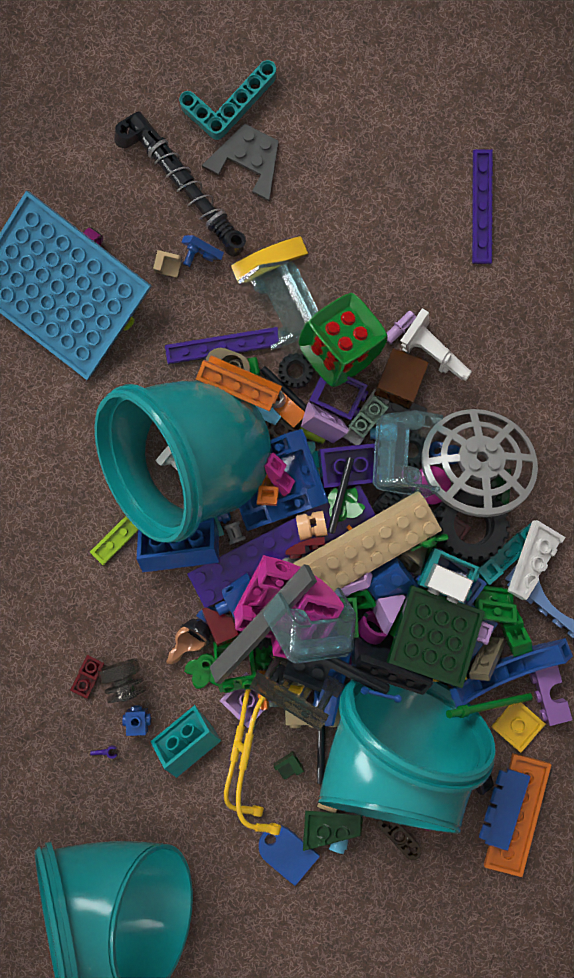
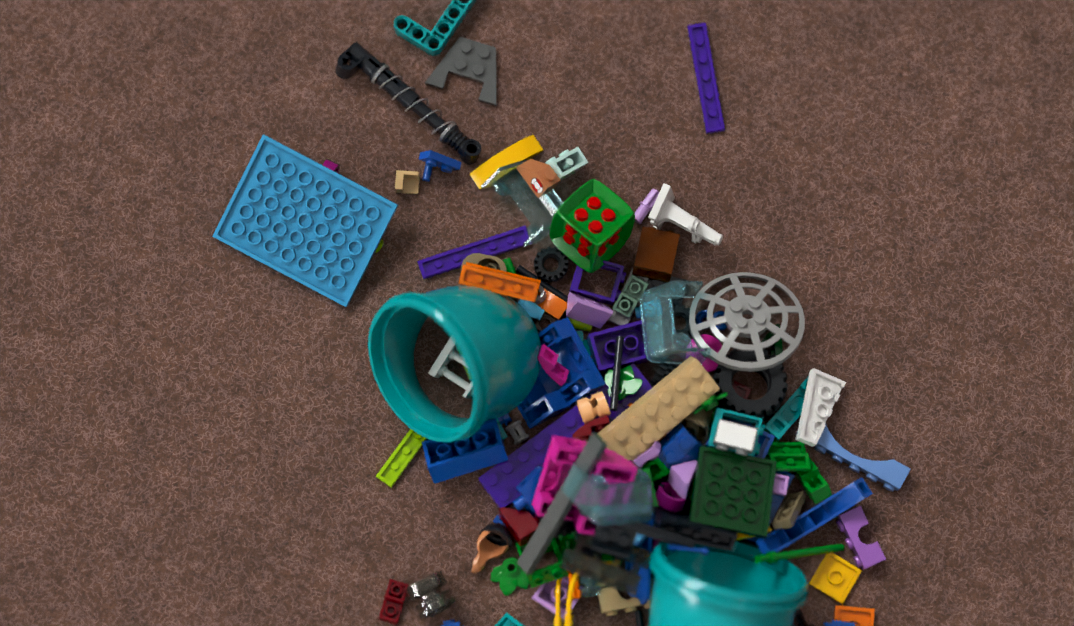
camera: 15 degrees left, 10 degrees down
(267, 493) = (545, 384): orange slope -> none
(297, 280) = (538, 176): none -> nougat slope
(325, 273) = (567, 163): none -> light aqua brick

